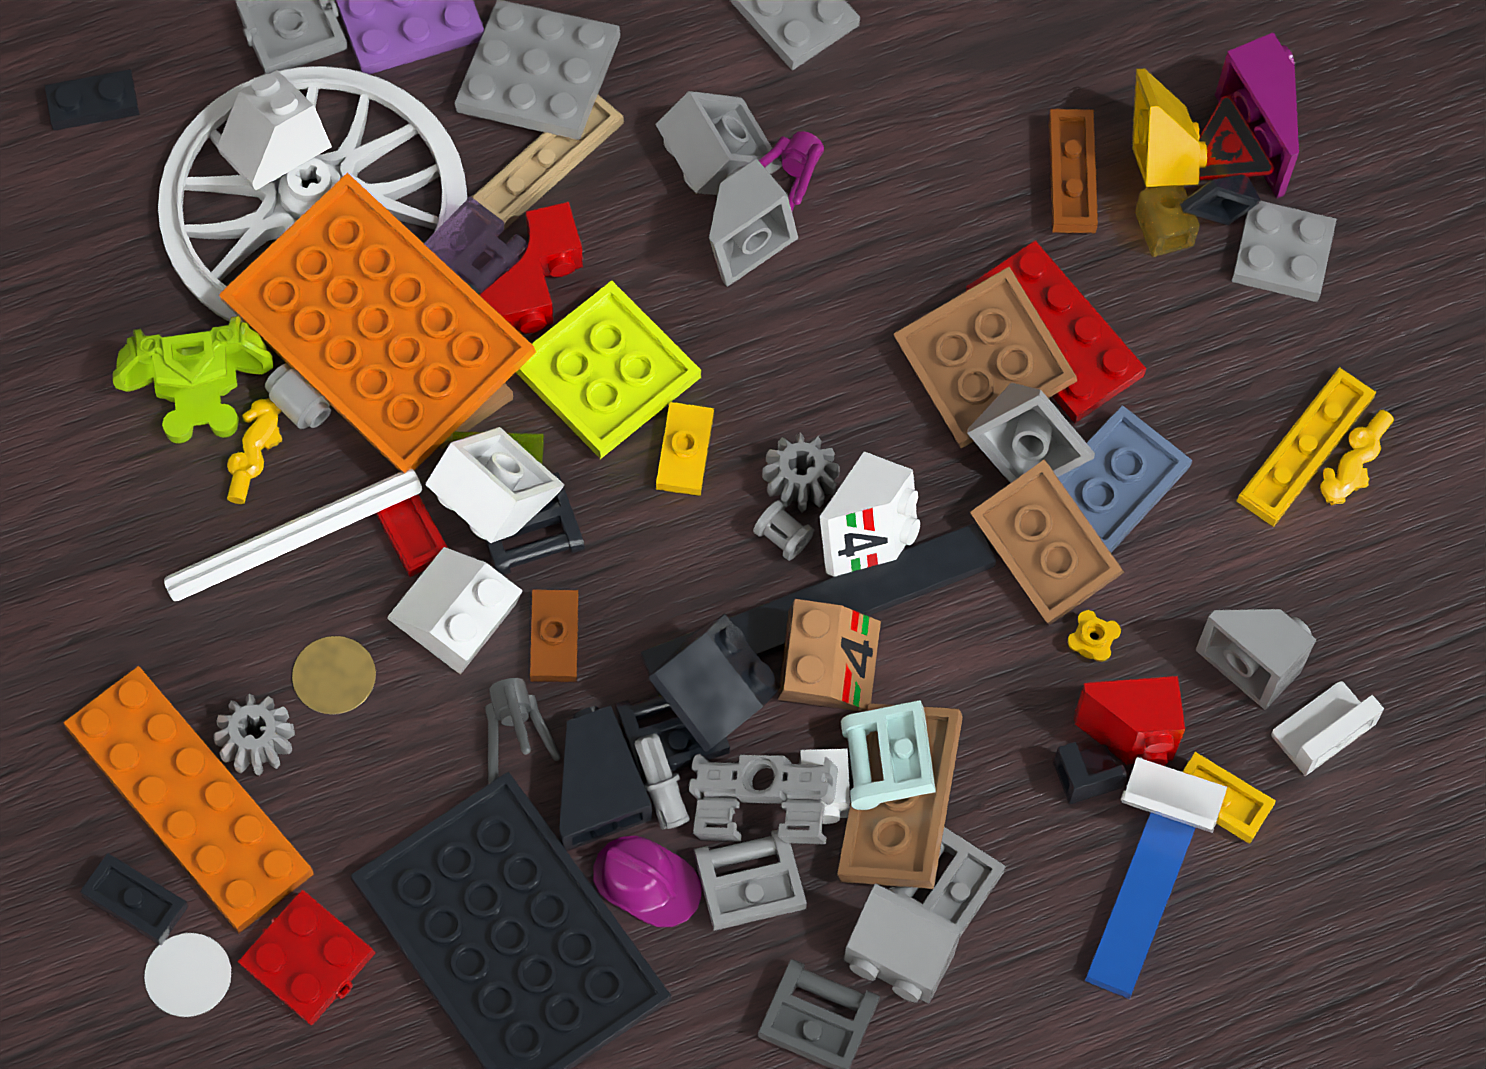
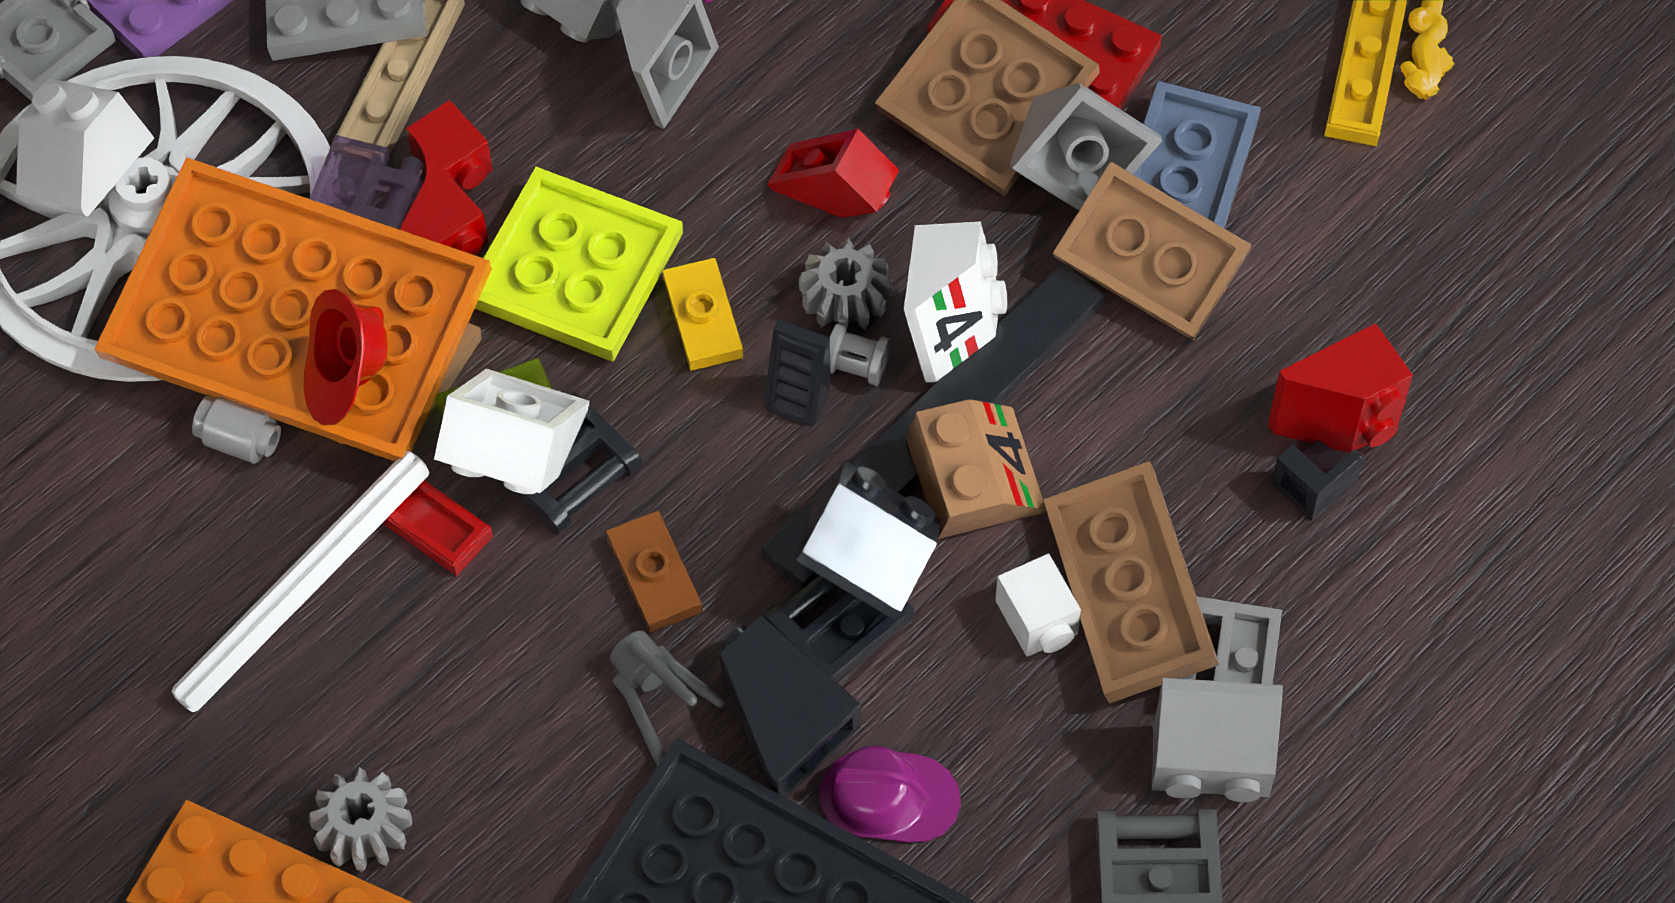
camera: 20 degrees left, 5 degrees down
(193, 373) = (104, 452): lime piece -> none
(259, 435) = (208, 491): yellow animal -> none
(333, 675) = (419, 719): pearl gold sticker -> none
(392, 376) = (342, 354): none -> red piece
(455, 607) = (529, 582): white slope -> none
(661, 782) = (857, 676): light grey axle -> none
(728, 529) = (798, 373): none -> black slope
(753, 892) = (1017, 756): light grey plate -> none
(799, 783) = (1017, 609): light grey piece -> none
(836, 379) = (836, 174): none -> red slope
(902, 751) = (1114, 530): light aqua plate -> none
(1094, 648) = (1244, 344): yellow plate -> none
(1140, 905) = (1444, 592): blue tile -> none
(1174, 795) = (1426, 458): white panel -> none
(1243, 805) = (1474, 442): yellow plate -> none
(1257, 650) = (1433, 270): light grey slope -> none
(1326, 726) = (1541, 326): white panel -> none

